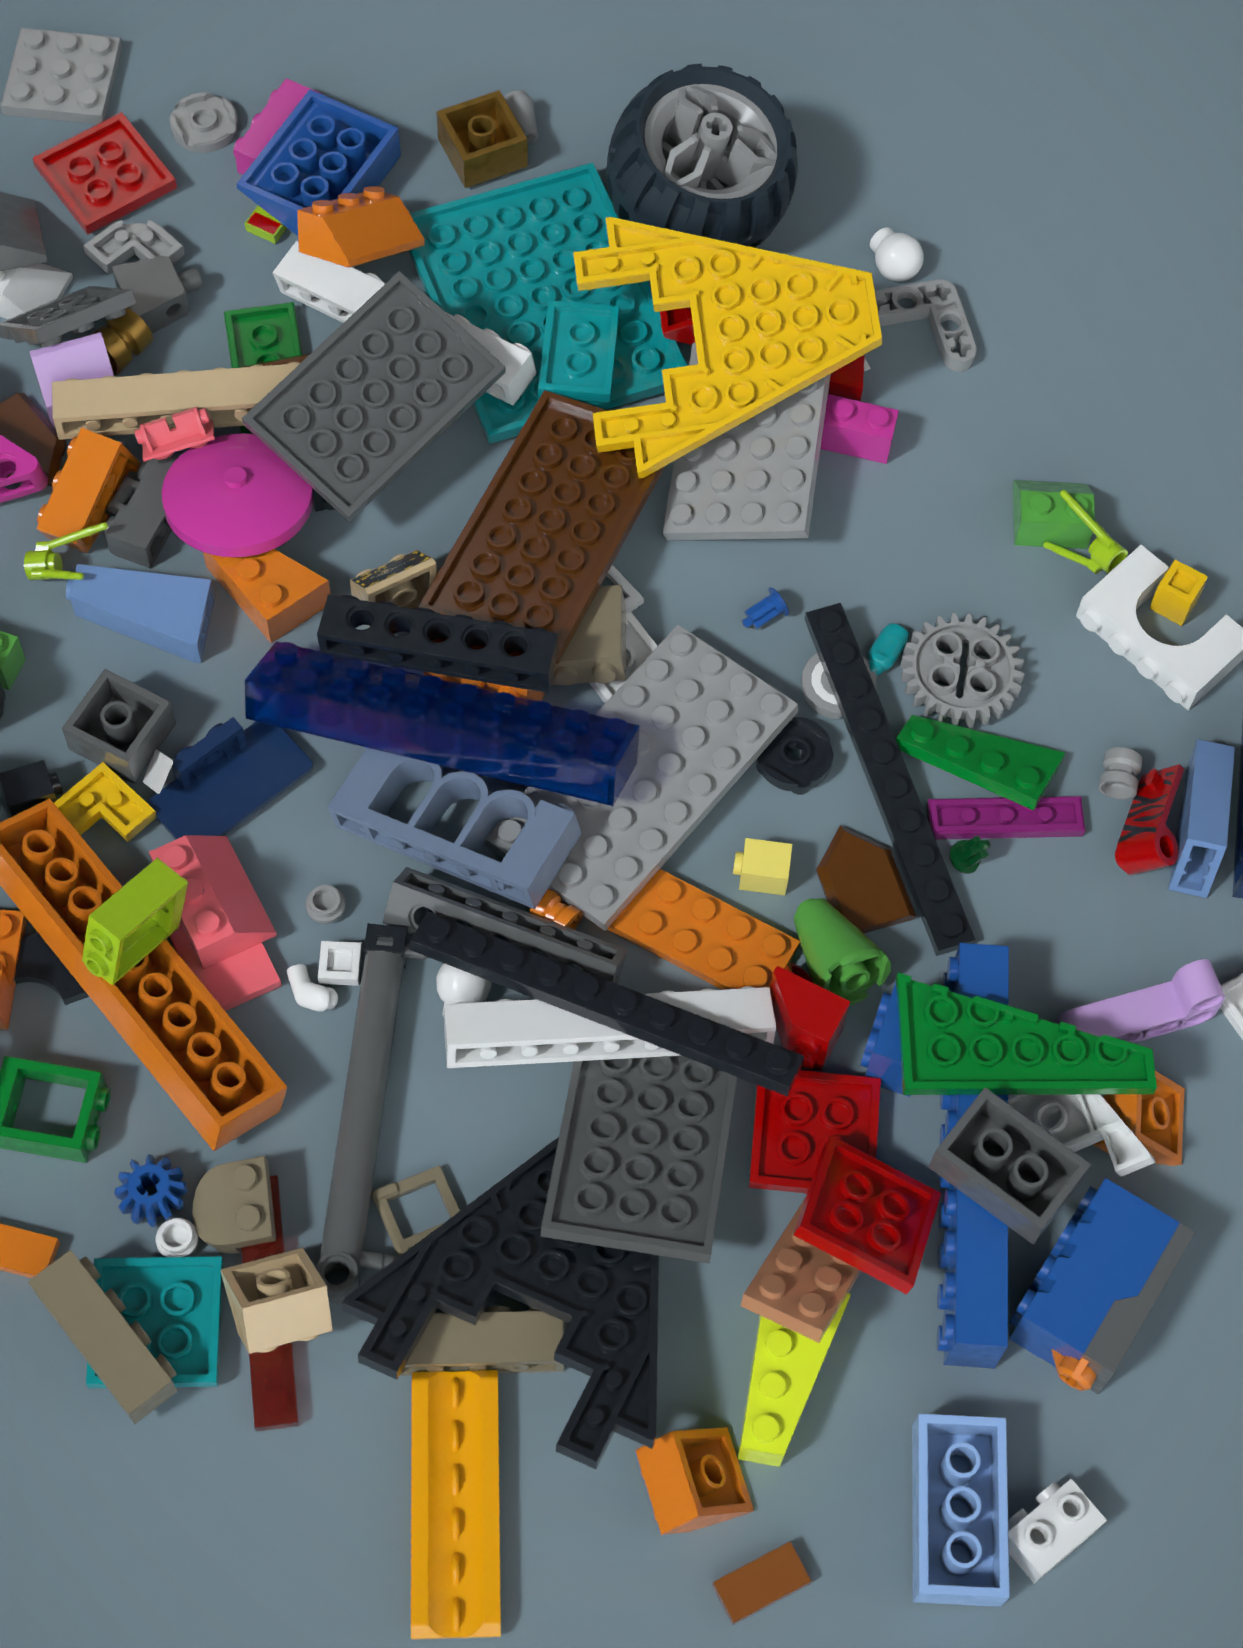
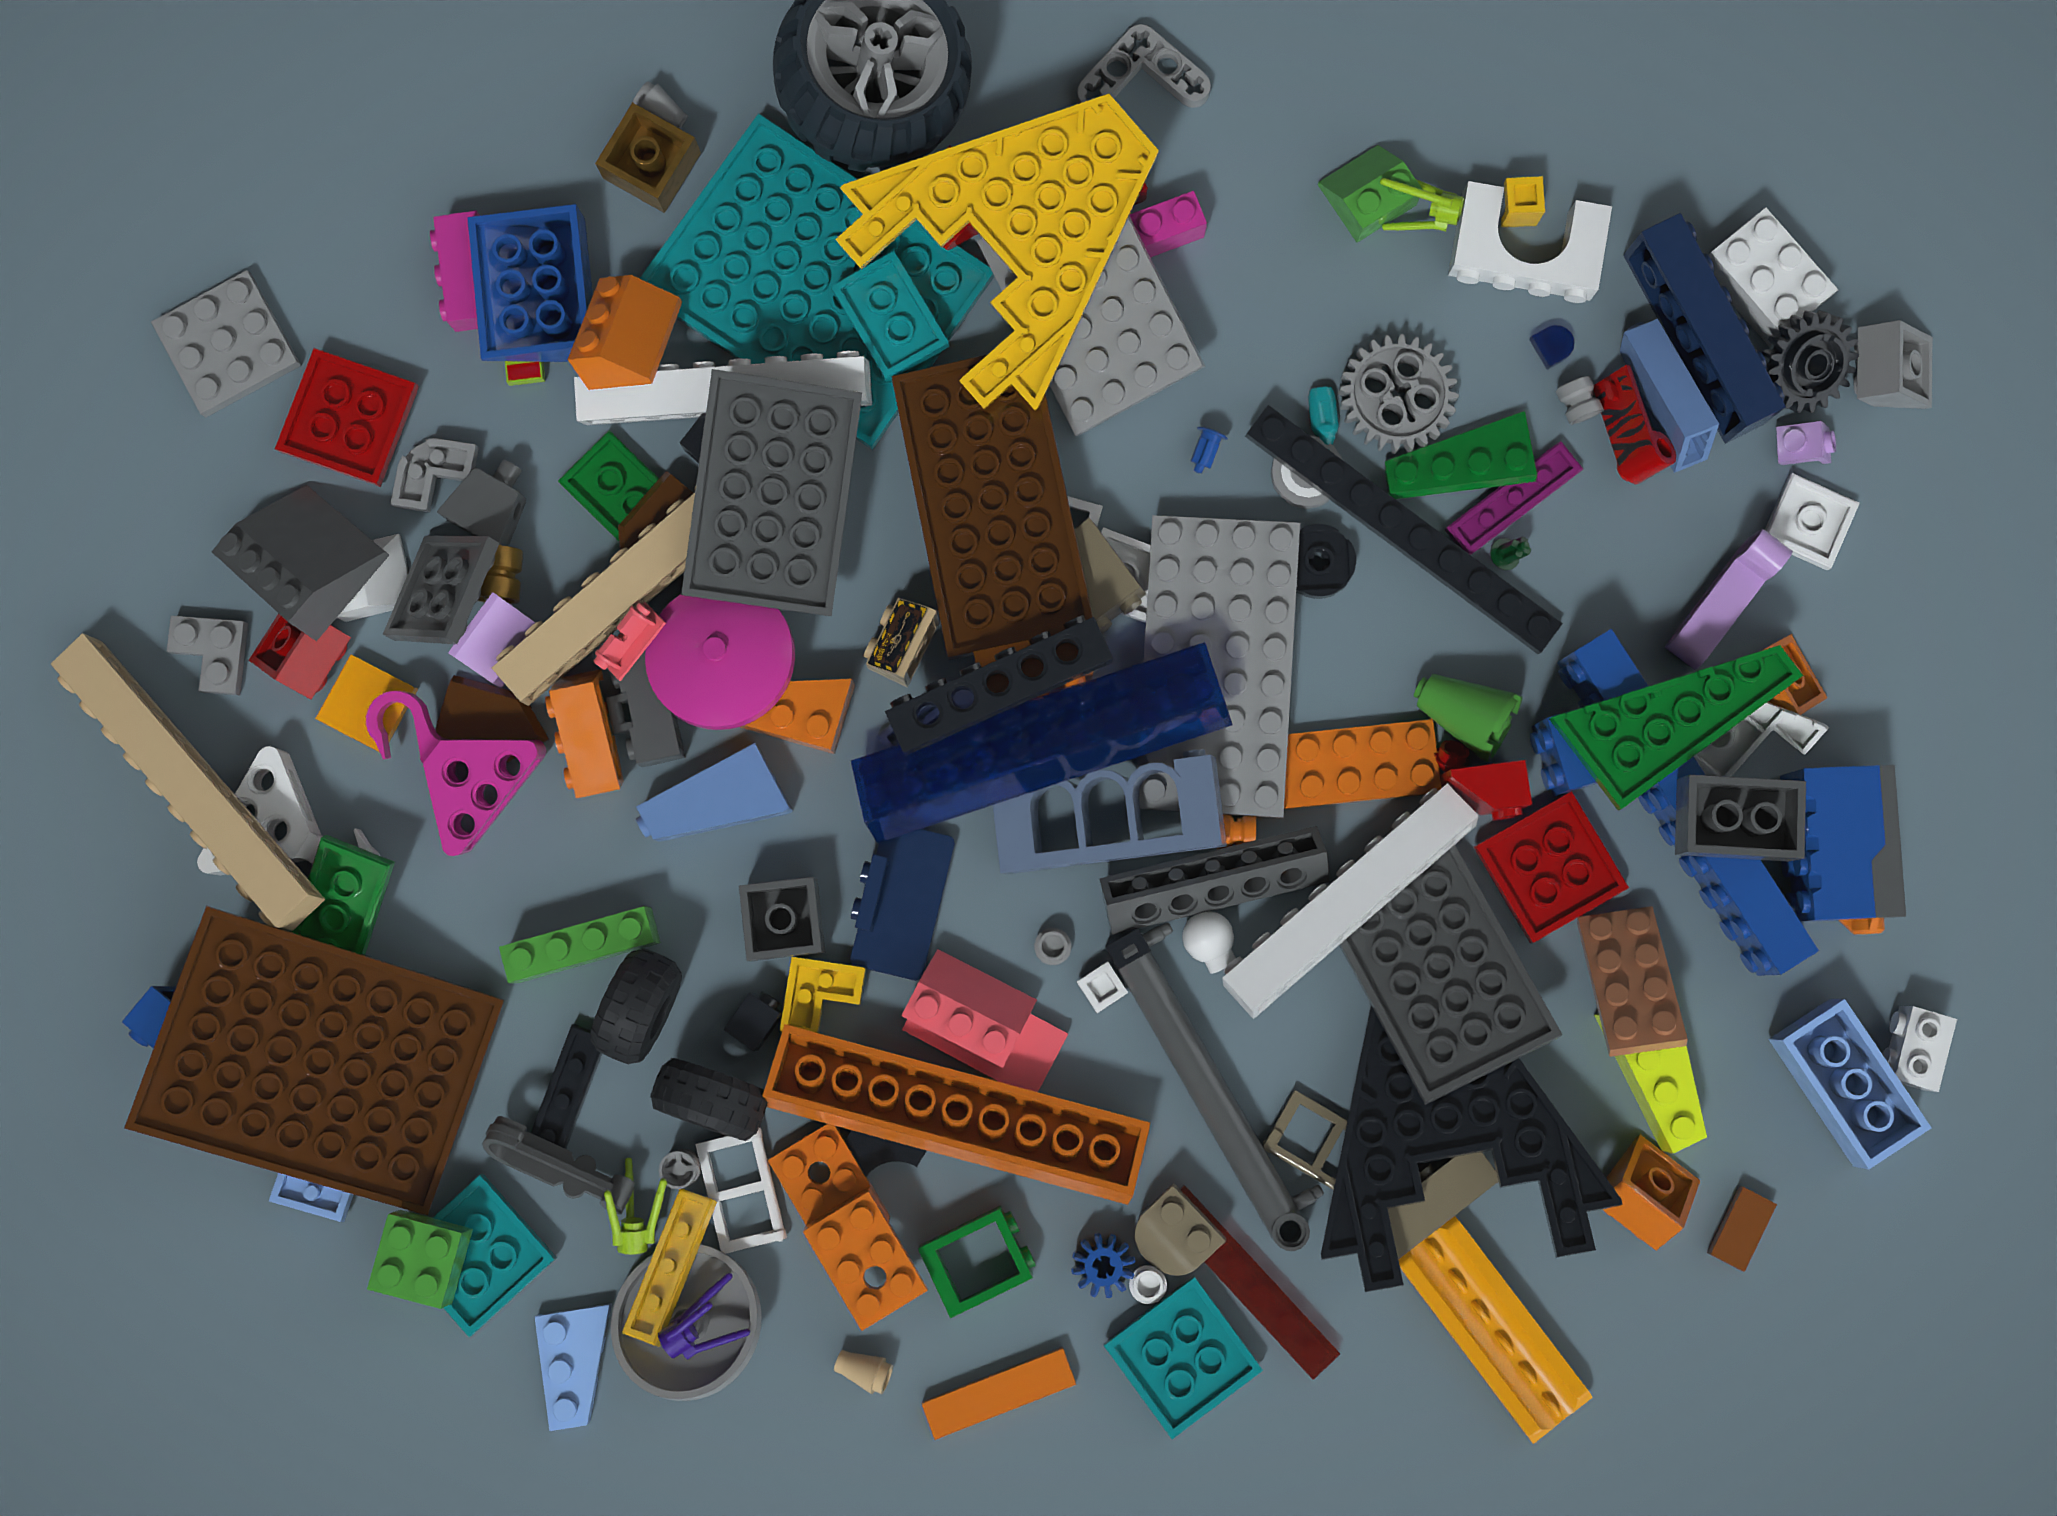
camera: 30 degrees left, 20 degrees up
(46, 565) = (606, 822): lime plant -> none
(104, 1336) = (1163, 1402): dark tan brick -> none
(134, 921) = (948, 1091): lime window -> none
(157, 771) = (844, 936): white sticker -> none
(204, 122) = (388, 303): light grey tile -> none
(277, 1300) = (1265, 1284): tan slope -> none
(310, 994) = (1096, 1028): white arm -> none
(607, 1003) = (1342, 889): black plate -> none
(763, 866) = (1363, 677): light yellow brick -> none
(864, 882) = (1443, 633): reddish brown tile -> none
(868, 1214) = (1646, 915): red plate -> none
(896, 254) = (1080, 27): white piece -> none
(1129, 721) = (1553, 345): none -> clear blue tile

